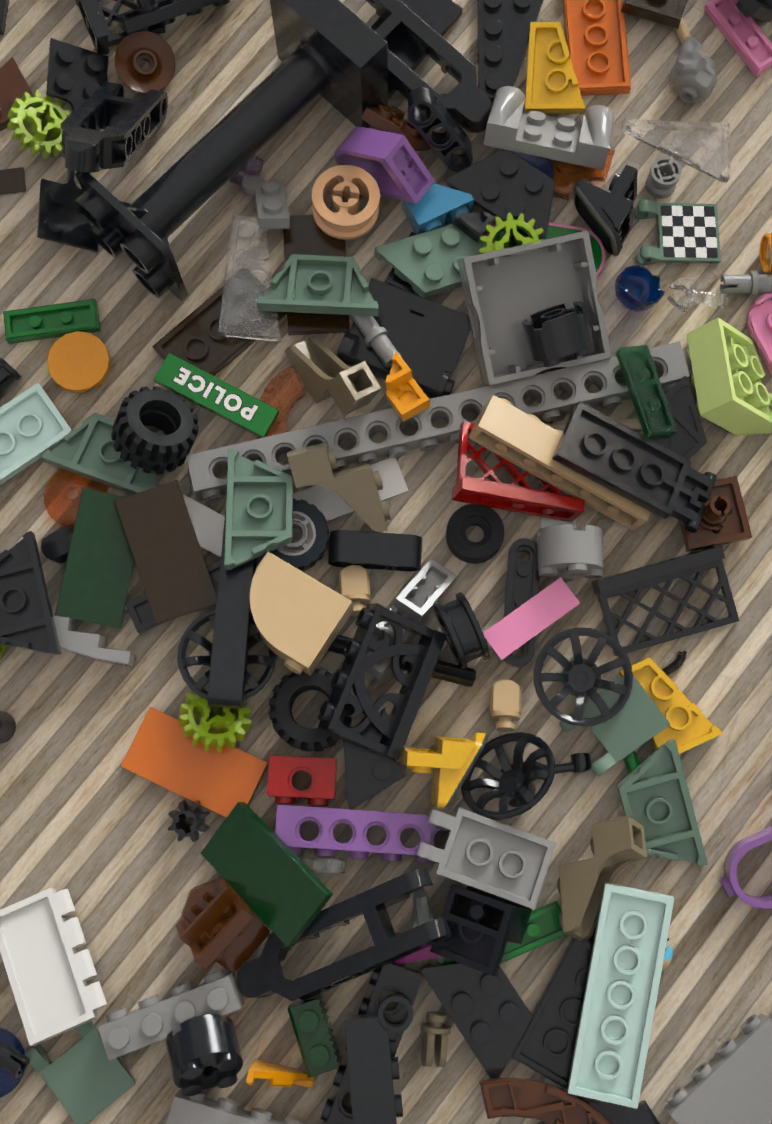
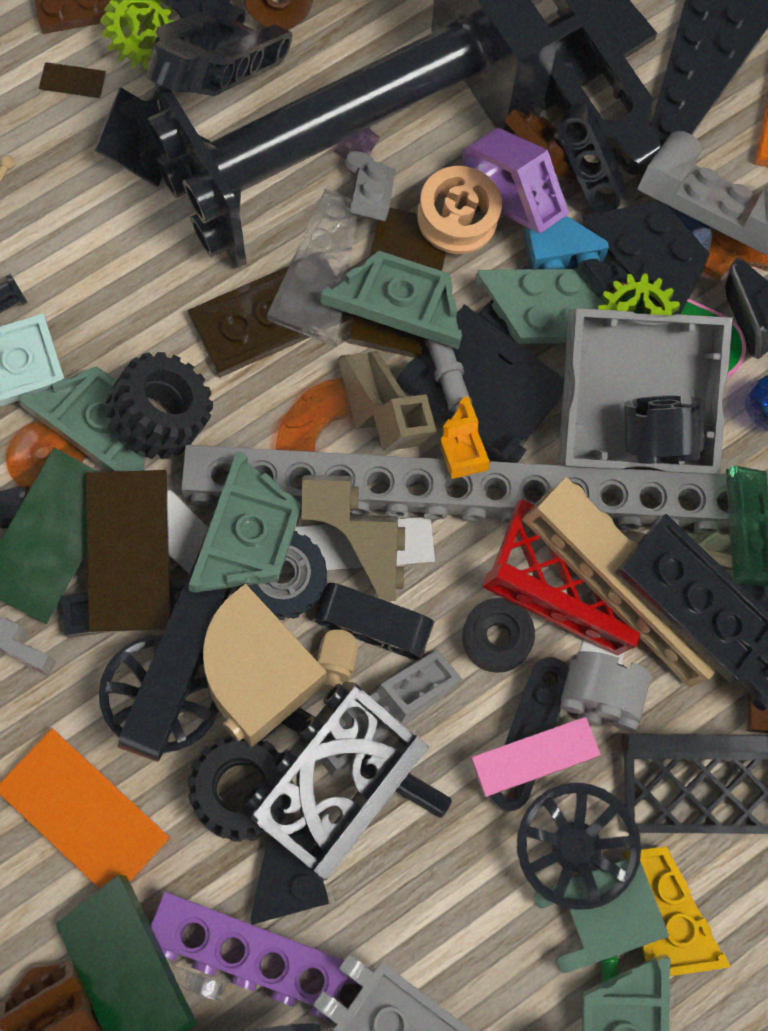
camera: 10 degrees right, 5 degrees down
(51, 321) = (82, 250): green tile -> none
(79, 362) = (97, 304): light orange tile -> none
(183, 829) = (44, 888): black gear -> none
(216, 396) = (243, 387): green tile -> none
(217, 730) = (119, 779): lime gear -> none
(284, 769) = (186, 851): red brick -> none
(450, 761) = (389, 902): yellow piece -> none
(462, 630) = (448, 746): black wheel -> none
(505, 704) = (475, 852): tan arm -> none
(514, 781) = (459, 948): black wheel -> none
(550, 73) = (738, 131): yellow wing -> none
(579, 763) = (545, 950): black piece -> none
(671, 666) = (694, 864): black leg -> none

